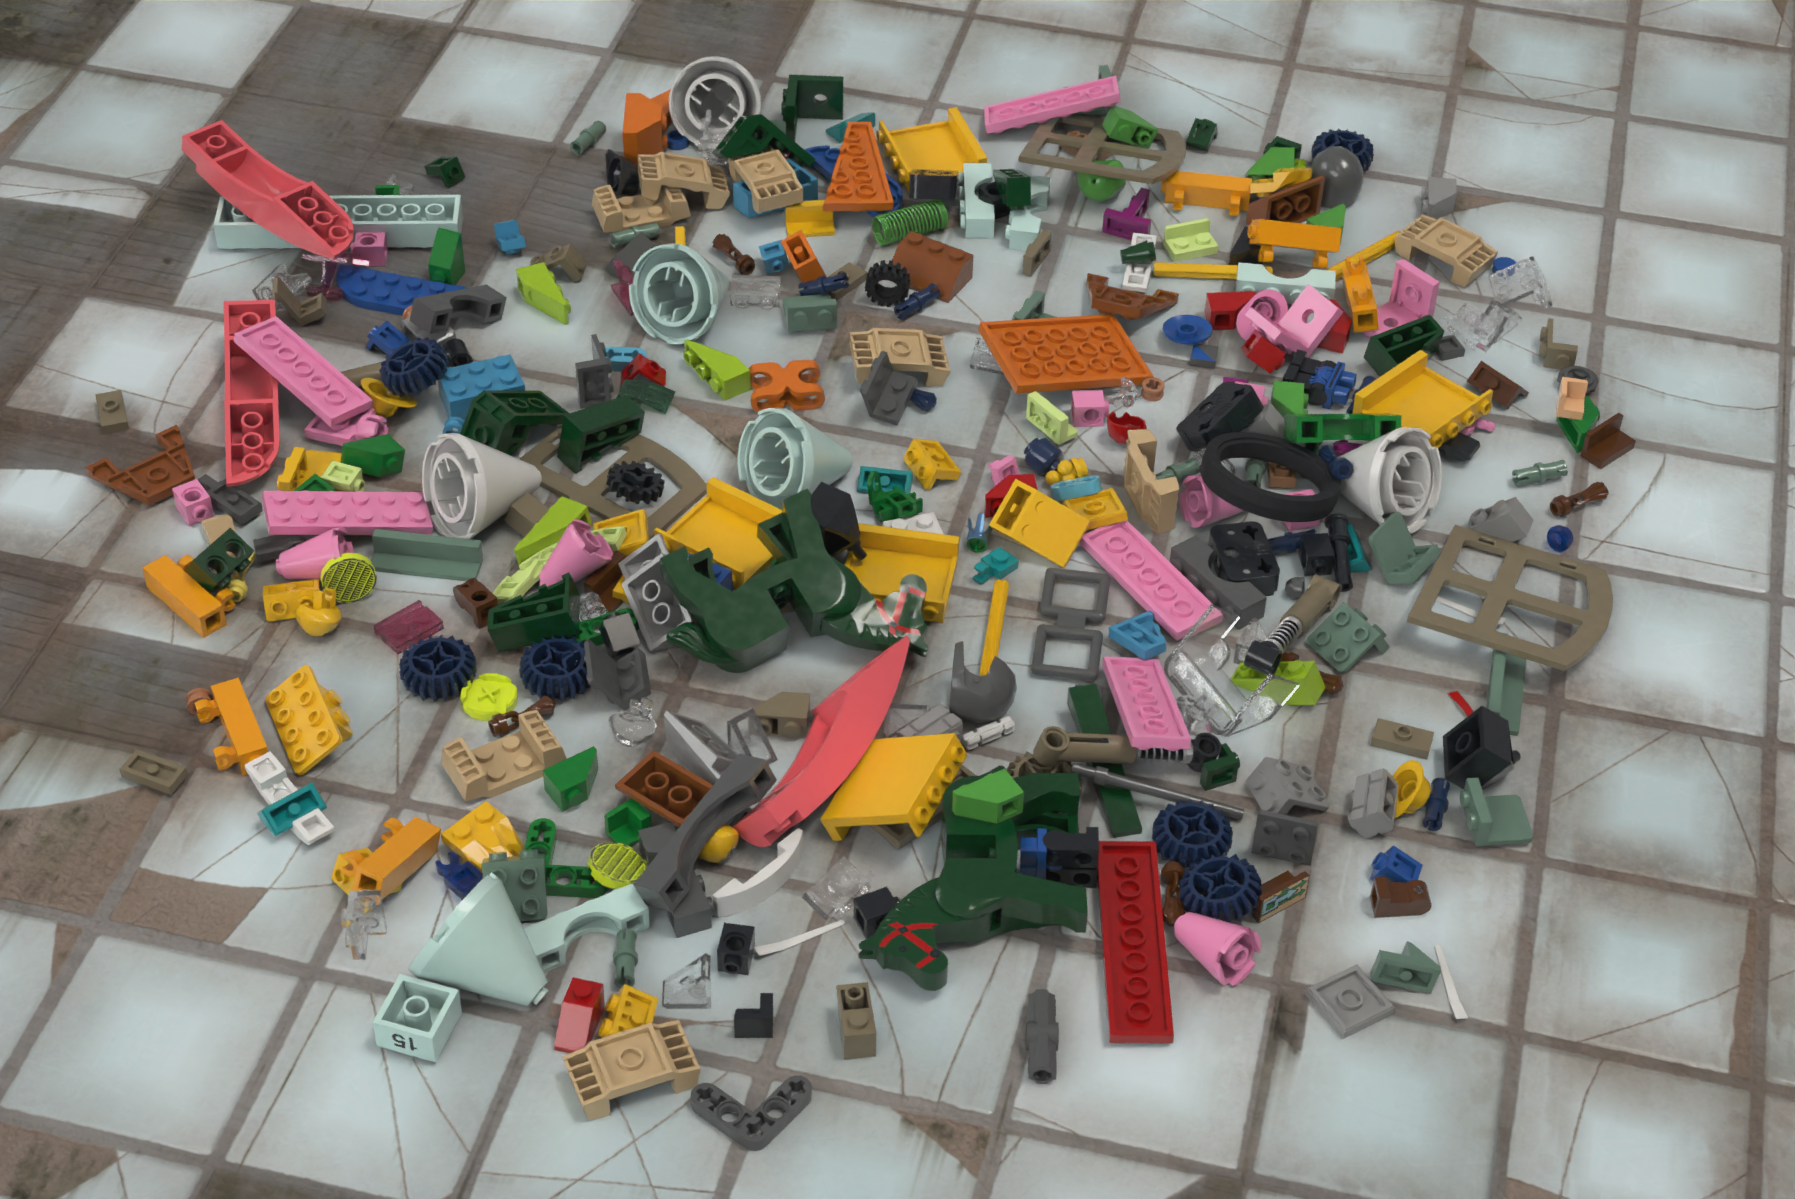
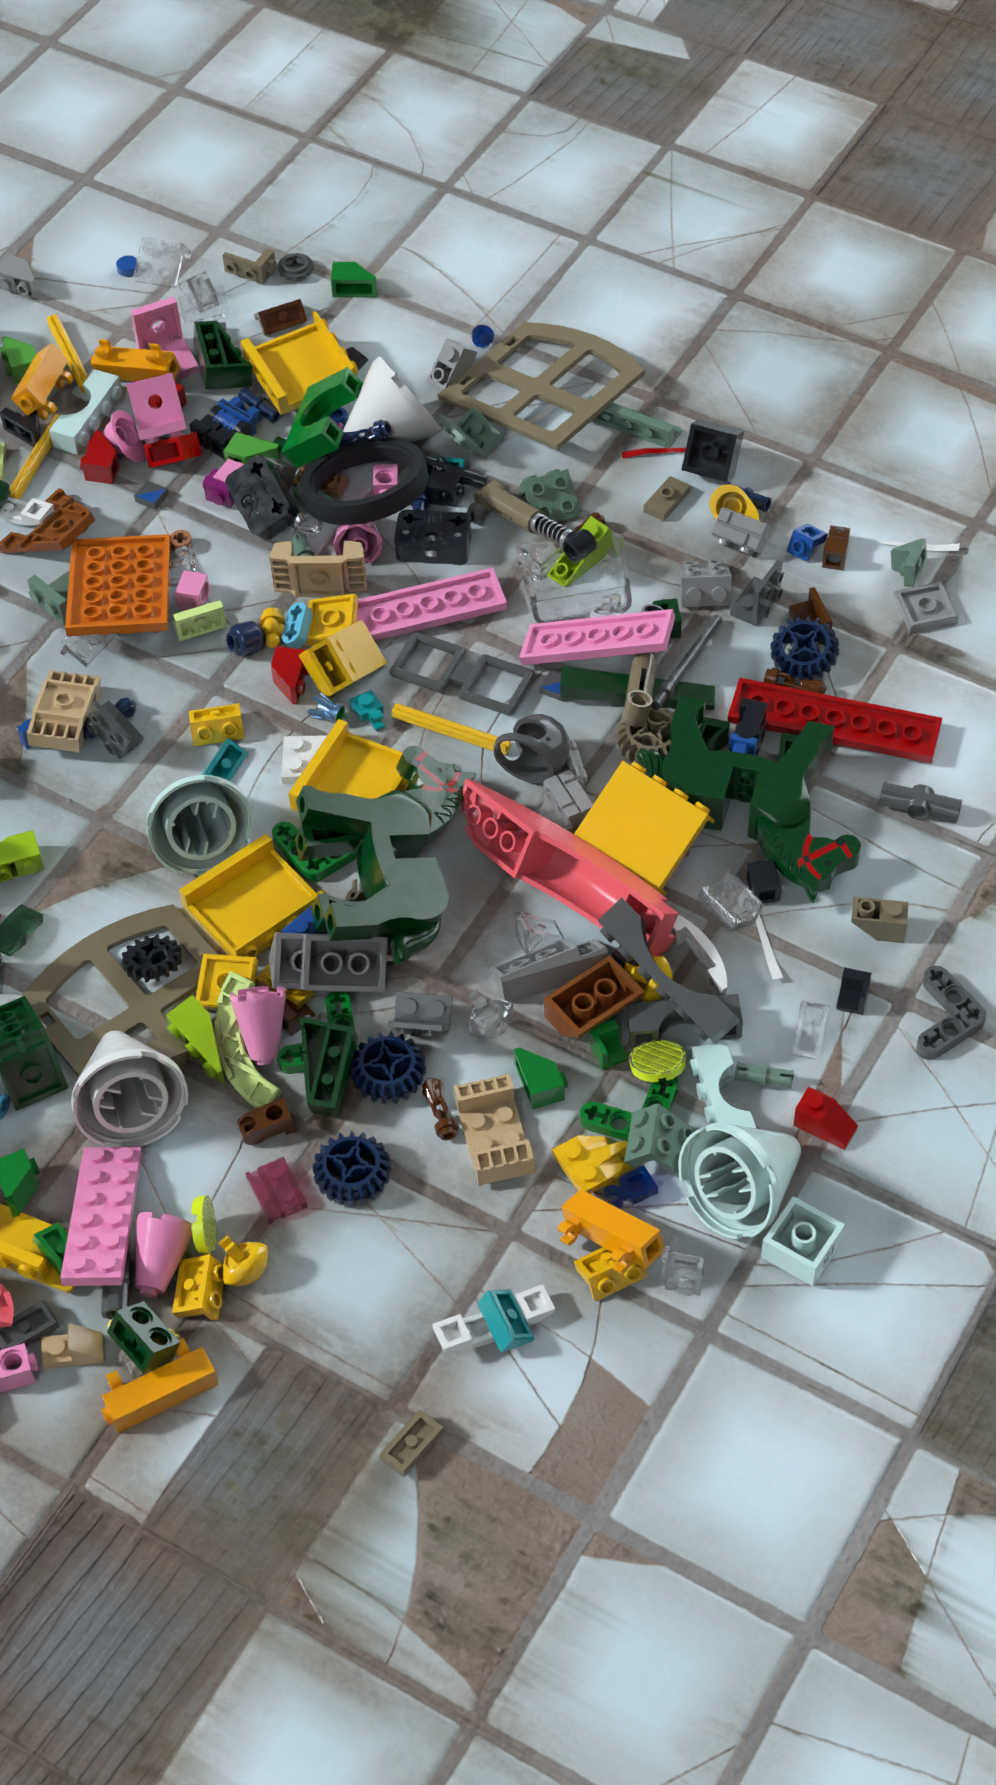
camera: 70 degrees left, 10 degrees up
(196, 695) = (325, 1390): nougat bush -> none
(238, 722) = (376, 1355): light orange brick -> none
(307, 719) = (387, 1293): yellow bracket -> none
(344, 477) = (39, 1214): yellowish green bracket -> none
(426, 555) = (182, 1160): sand green panel -> none
(489, 696) = (401, 1133): neon yellow tile -> none
(596, 429) = (68, 974): dark green wedge -> none
(619, 634) = (367, 1007): brick -> none
(627, 1010) = (837, 1082): yellow bracket -> none
(631, 1063) = (893, 1088): tan plate -> none
(736, 948) = (778, 980): black brick -> none
(785, 715) = (510, 896): dark tan slope -> none
(786, 385) = (57, 810): orange piece -> none
(837, 520) = (280, 806): black piece -> none
(891, 504) = (257, 767): green piece -> none
(989, 798) = (703, 753): bright green slope -> none
(1003, 468) = (253, 673): bright pink tile -> none
(1118, 427) = (232, 570): red hair -> none
(1139, 636) = (500, 628): dark azure wing -> none
(1187, 329) = (116, 494): blue dish -> none
(1191, 832) = (737, 645): dark blue gear -> none
(1194, 561) = (482, 553): dark grey arch -> none
(1219, 946) = (861, 666): bright pink cone -> none
(1448, 243) = (90, 287): tan plate -> none
(1494, 818) = (771, 467): sand green bracket -> none
(1539, 472) = (399, 324): sand green pin -> none
(1561, 505) = (442, 322): reddish brown piece -> none
(1571, 398) = (340, 272): light nougat panel -> none
(1606, 442) = (386, 277): reddish brown panel -> none

